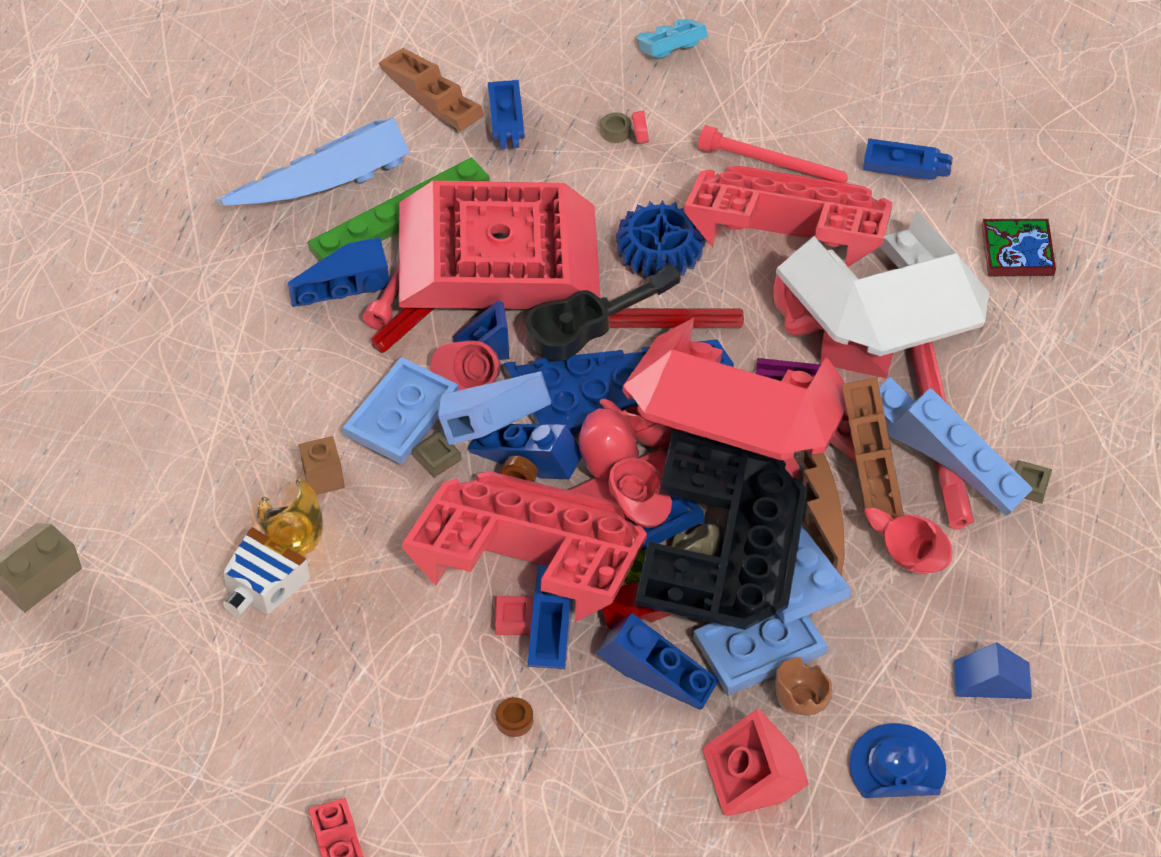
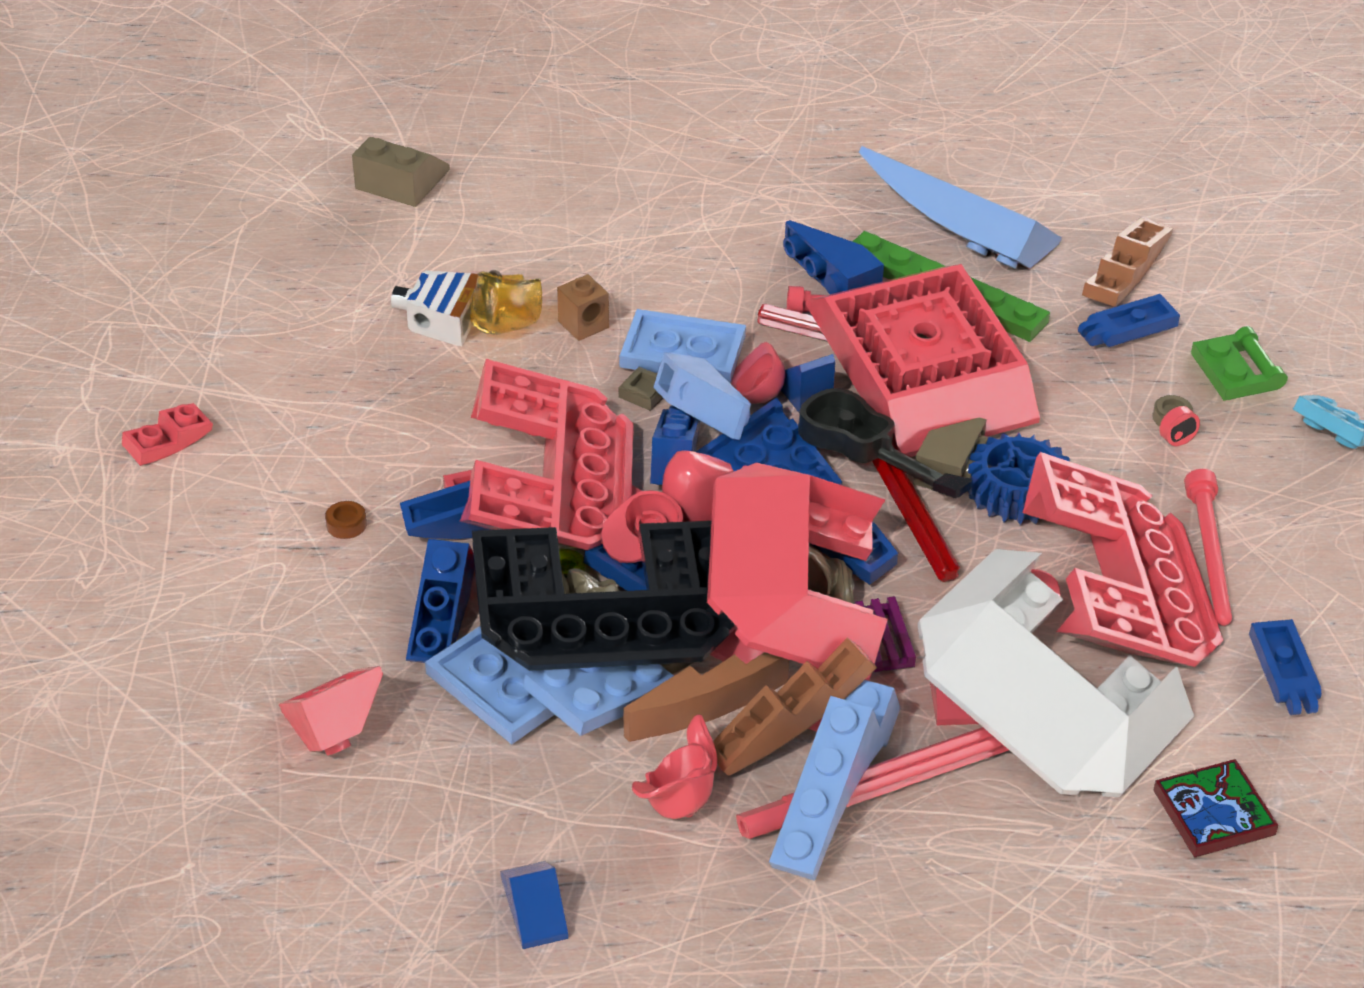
camera: 70 degrees right, 10 degrees down
(520, 468) = (640, 444): dark orange tile -> none
(579, 78) = (1228, 369): none -> bright green plate
(619, 269) = (950, 448): none -> dark tan slope
(802, 688) = (447, 721): nougat hair -> none
(897, 763) = (389, 839): blue hat -> none
(1036, 477) = (841, 887): dark tan tile -> none

